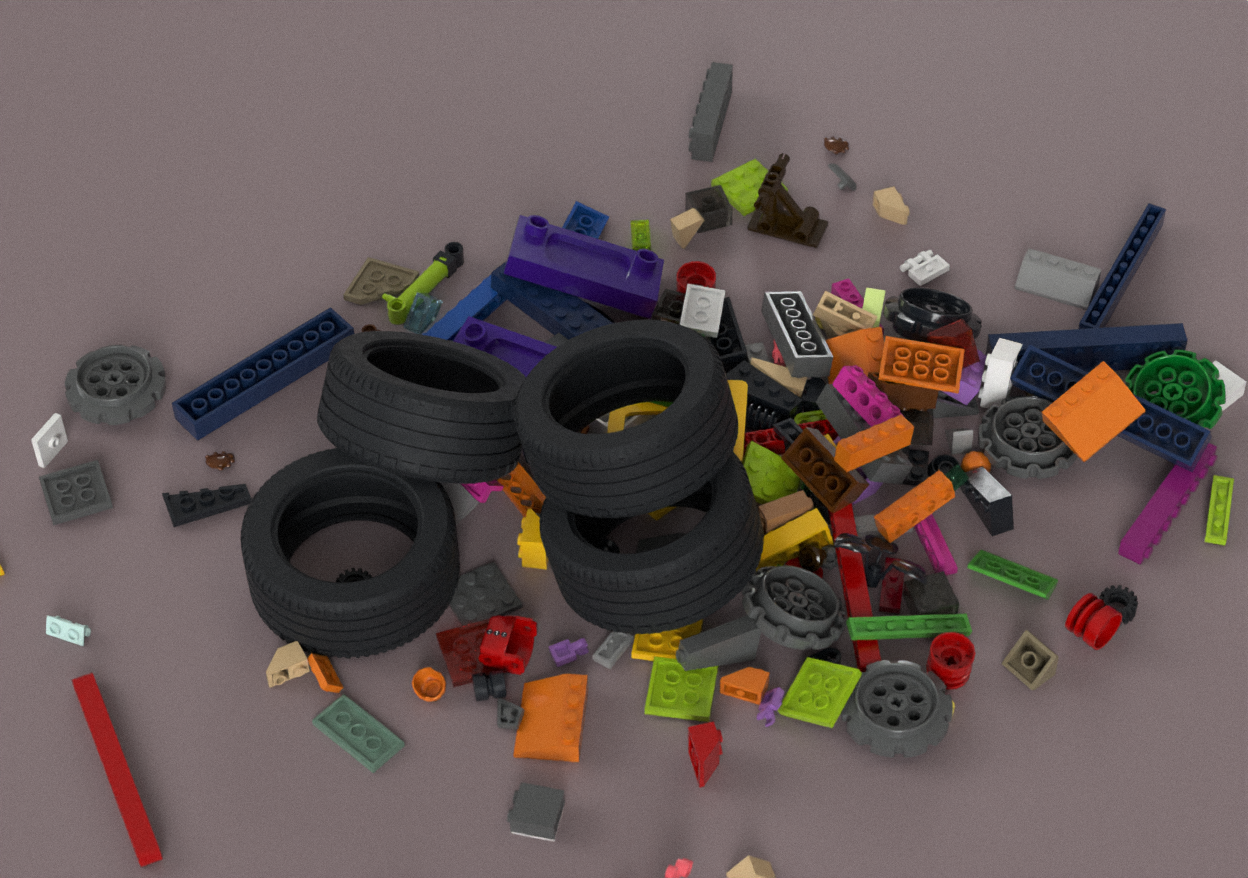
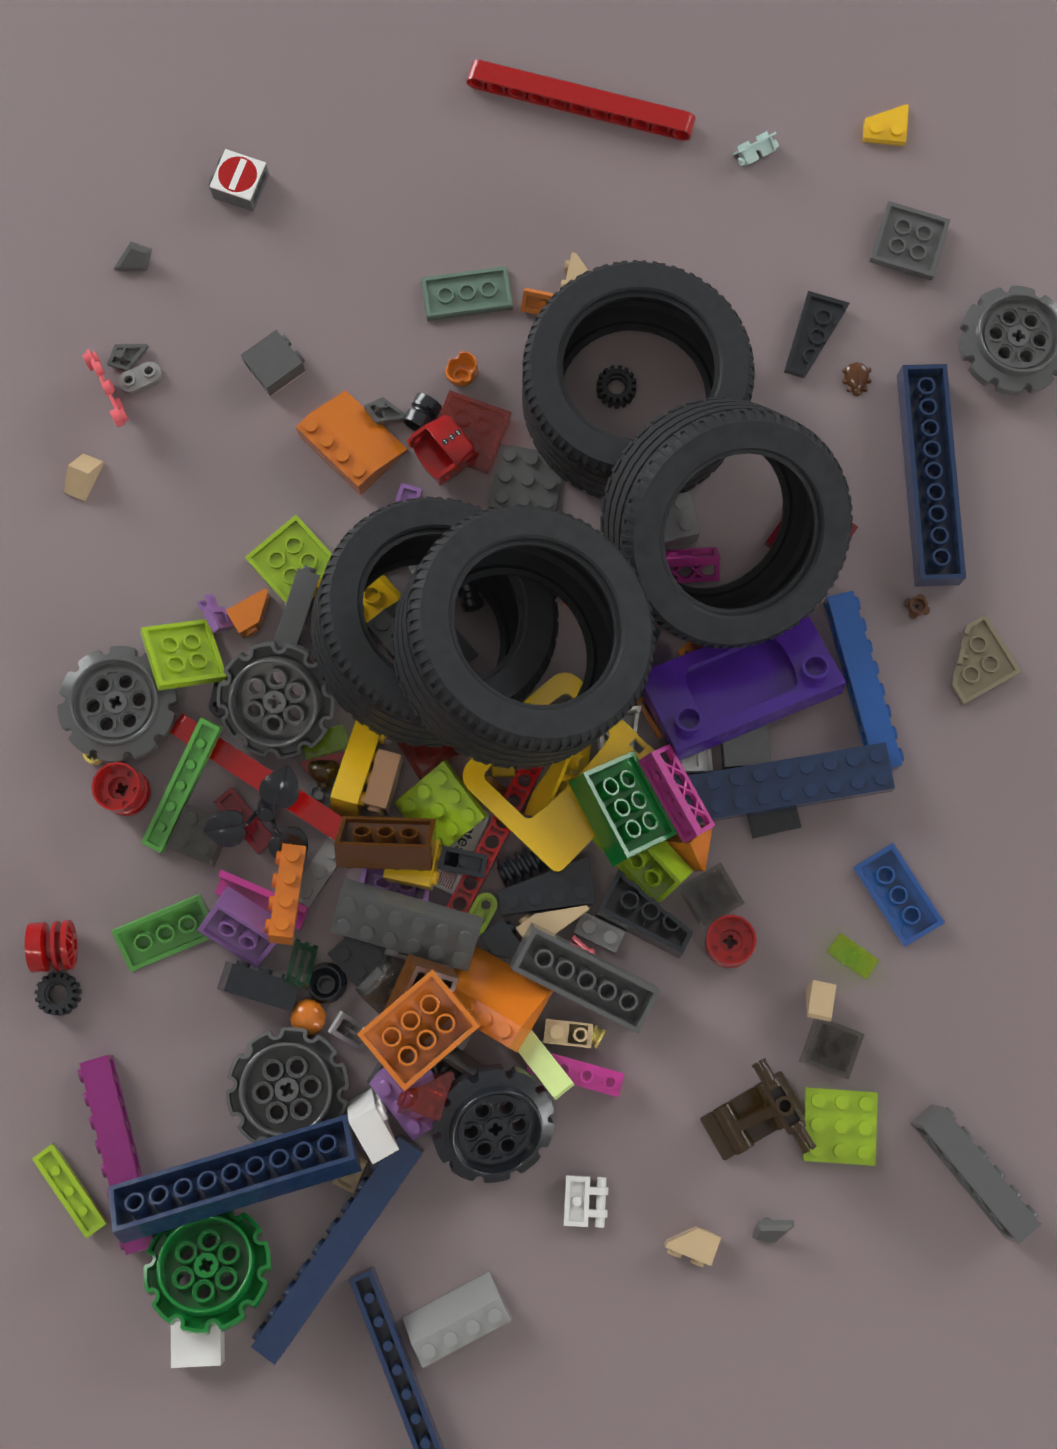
camera: 125 degrees right, 30 degrees up
(49, 440) = (984, 245): white plate -> none
(422, 312) = (905, 669): clear light blue slope -> none
(443, 266) = (955, 732): lime piece -> none
(584, 266) = (826, 838): dark purple piece -> none
(702, 309) = (679, 905): white plate -> none
(704, 750) = (212, 520): red slope -> none
(836, 145) = (831, 1272): reddish brown piece -> none
(842, 313) = (561, 1033): tan slope -> none
(864, 396) = (421, 943): dark pink brick -> none
(873, 443) = (357, 891): orange brick -> none
(961, 531) = (238, 927): none -> medium lavender slope
(1031, 661) = (69, 861): dark tan slope -> none
(1093, 411) = (233, 1145): orange slope -> none

